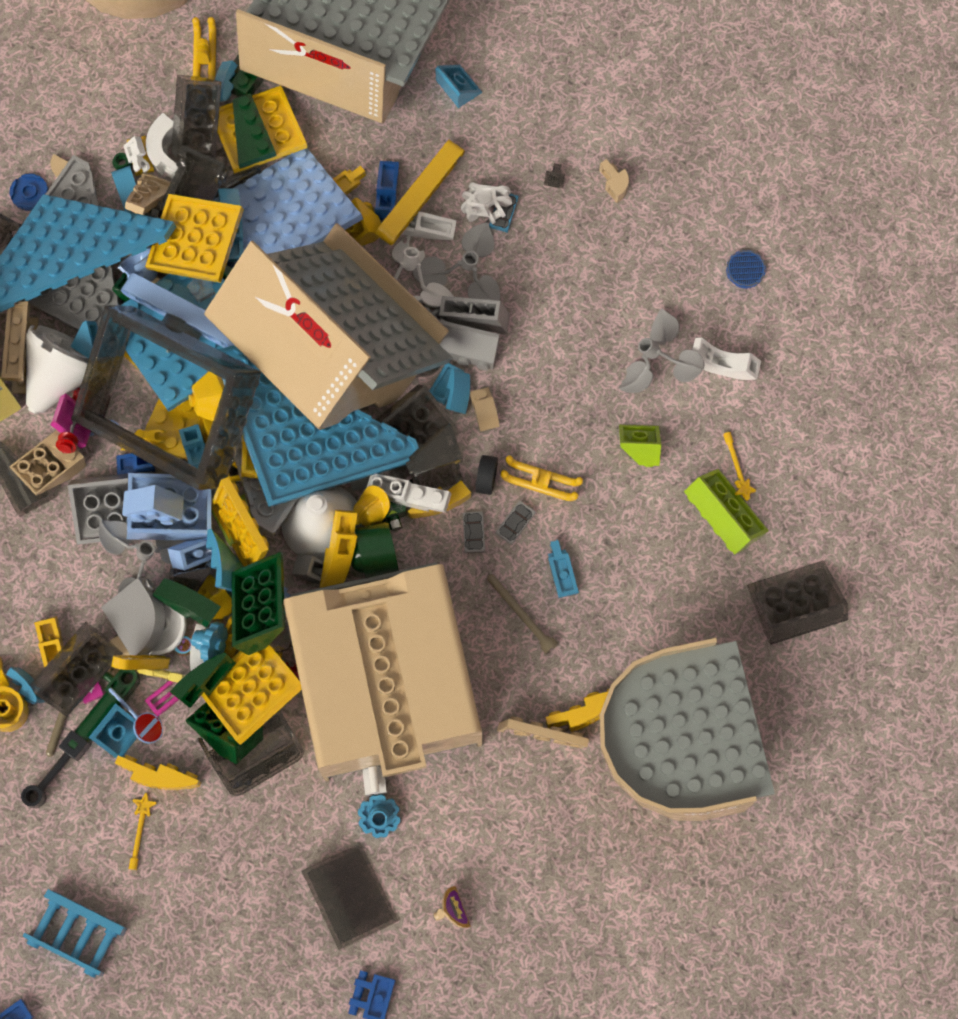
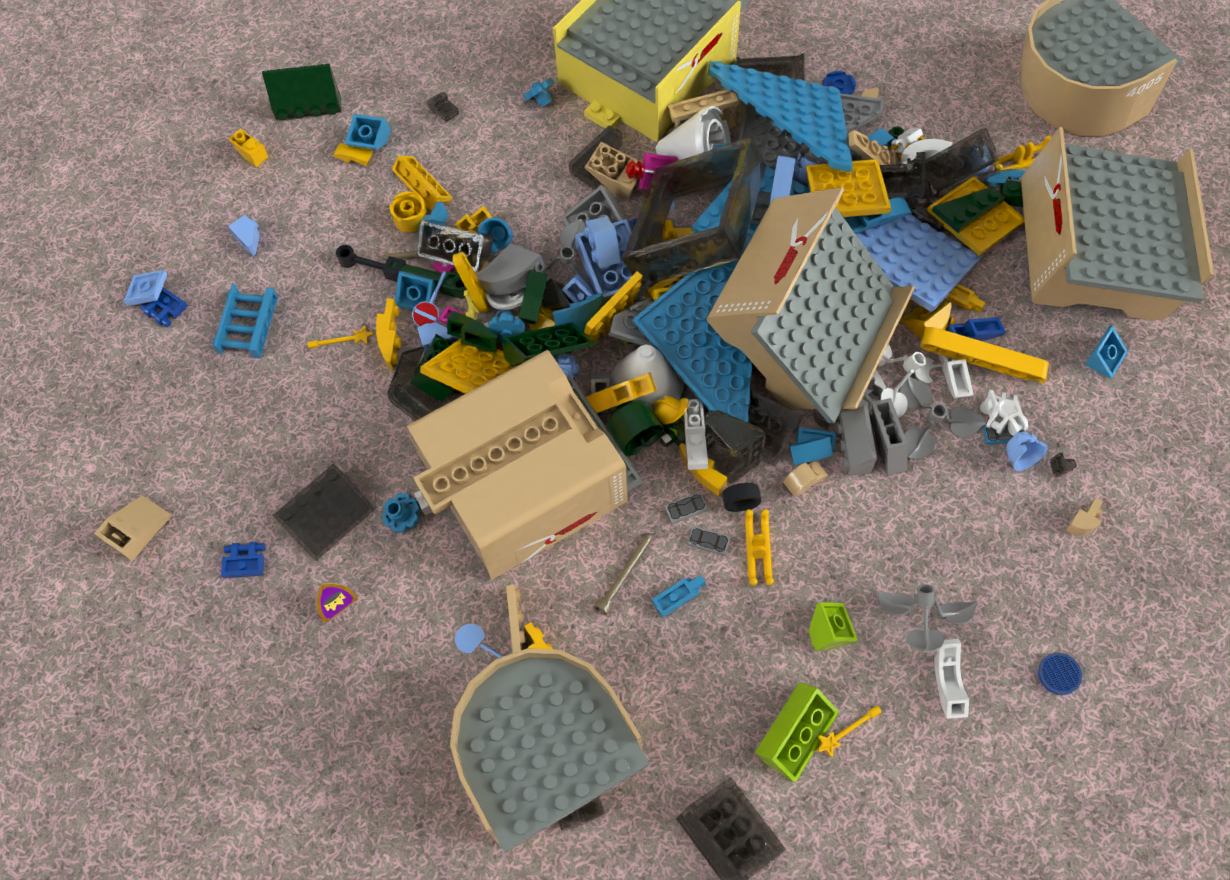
camera: 75 degrees right, 10 degrees down
(75, 616) = (501, 231): none -> dark azure helmet
(176, 728) = (428, 332): none -> light blue slope
(530, 202) = (1025, 450): none -> light blue helmet
(535, 785) = (469, 637): none -> light blue piece

